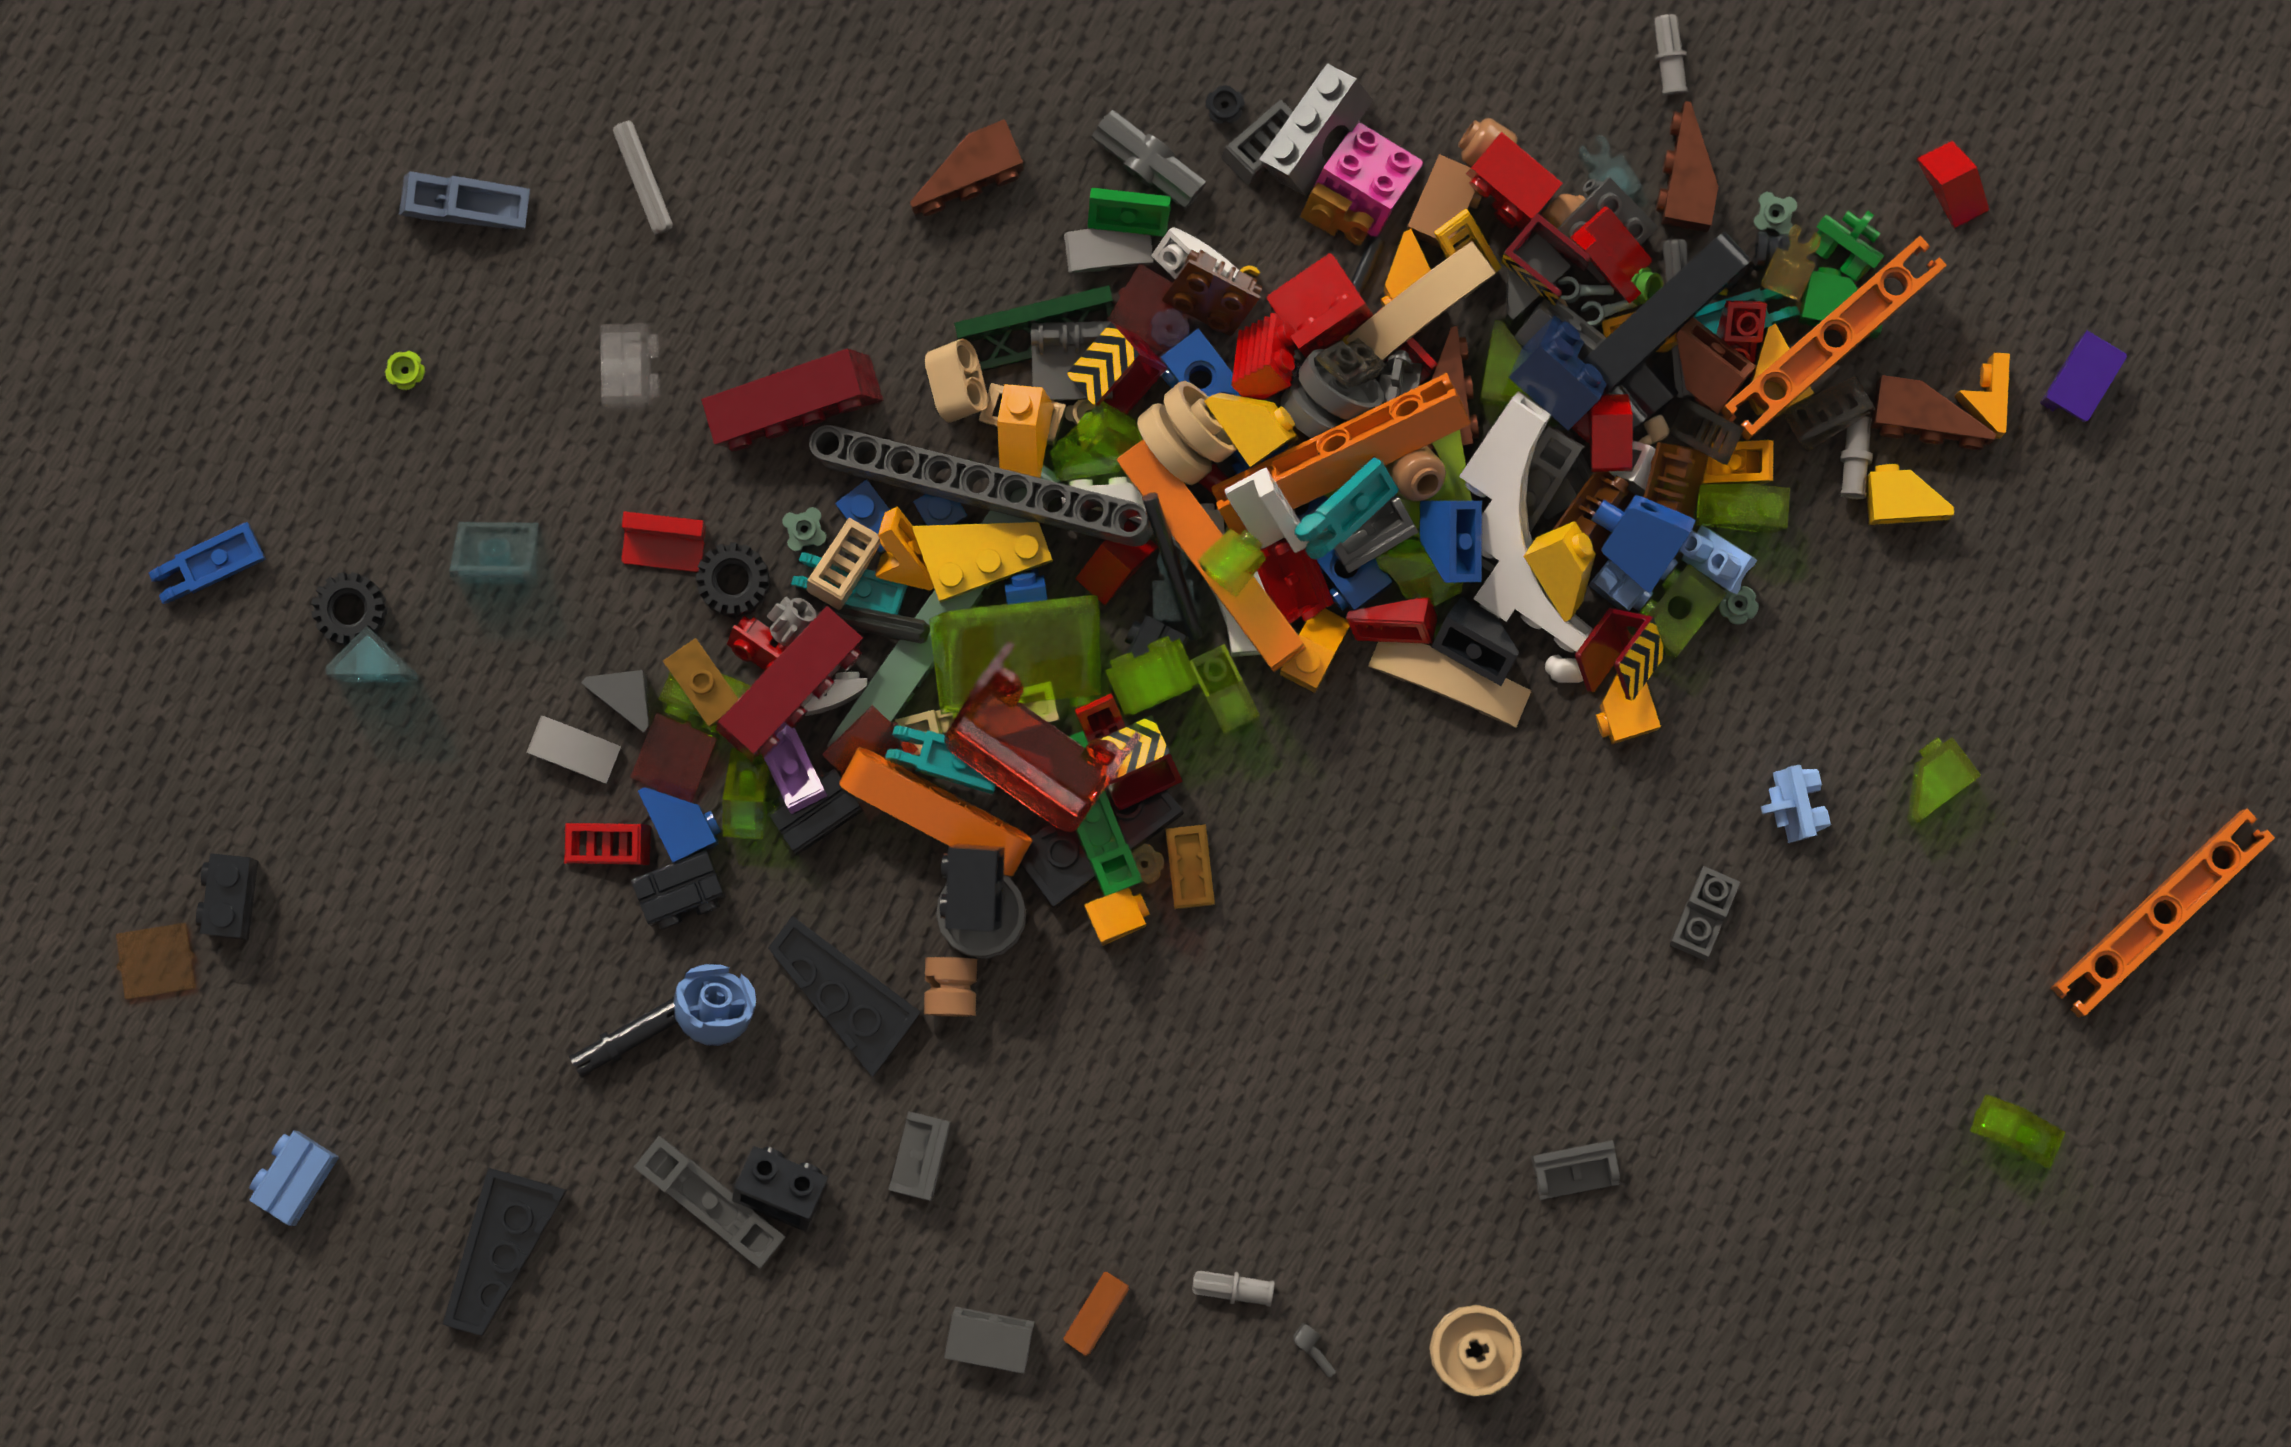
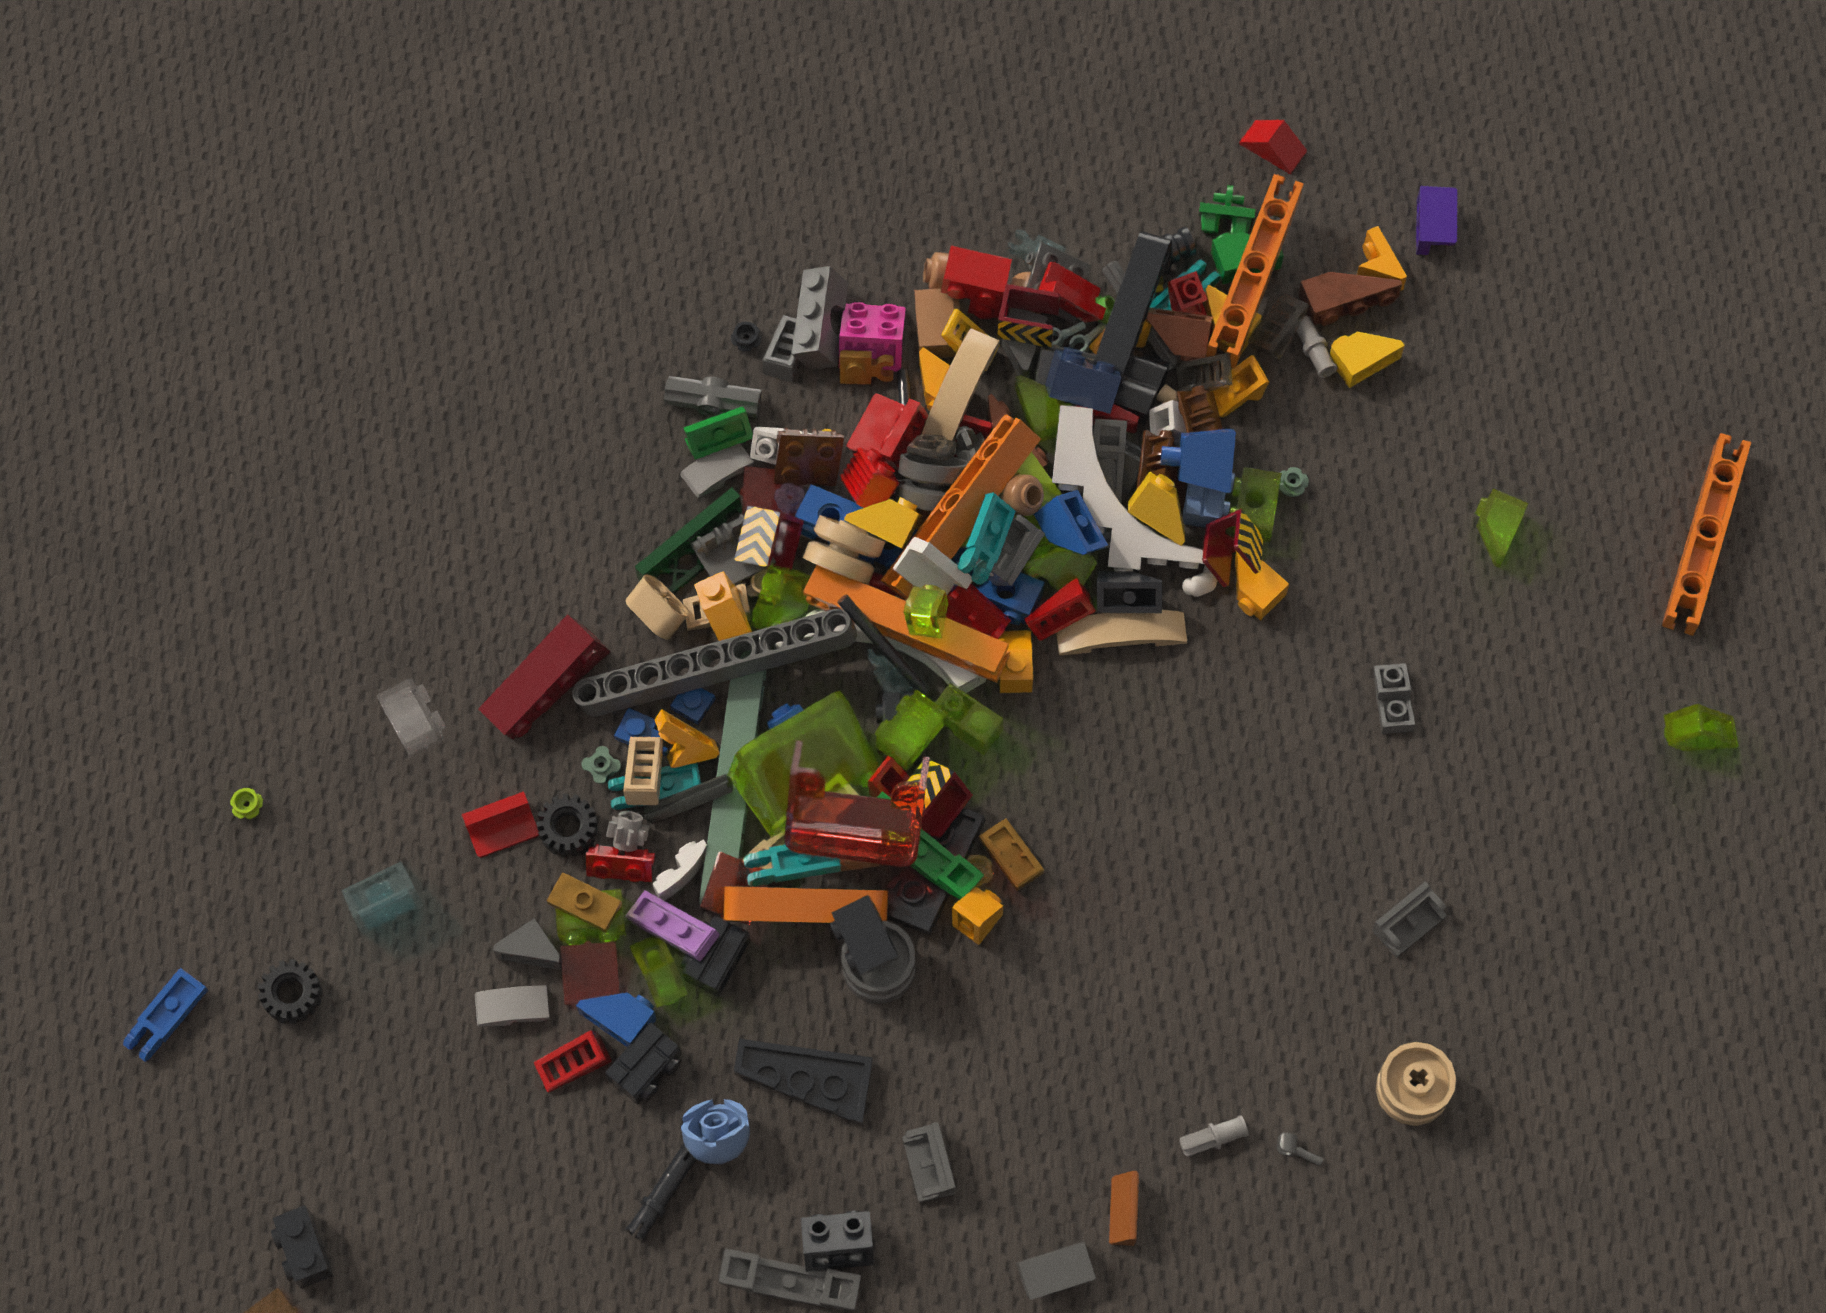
camera: 30 degrees left, 15 degrees down
(370, 660) = (327, 1016): clear light blue slope -> none
(463, 201) = (230, 665): sand blue slope -> none
(642, 177) = (355, 586): light grey axle -> none
(790, 684) = (650, 867): dark red brick -> none
(950, 986) = (885, 1029): medium nougat wheel -> none
(977, 161) = (592, 456): copper slope -> none
(979, 554) = (739, 712): yellow wing -> none
(1113, 566) = (840, 672): red slope -> none
(1611, 434) = (1141, 405): red slope -> none
(1670, 54) = (1035, 157): light grey axle -> none
(1692, 182) = (1098, 228): copper slope -> none
(1717, 558) = (1262, 455): light blue hips -> none
(1743, 507) = (1260, 413): clear neon green slope -> none
(1766, 220) = (1157, 218): sand green plate -> none
(1790, 269) = (1197, 246): clear yellow plate -> none
(1792, 804) = (1411, 592): light blue hips -> none

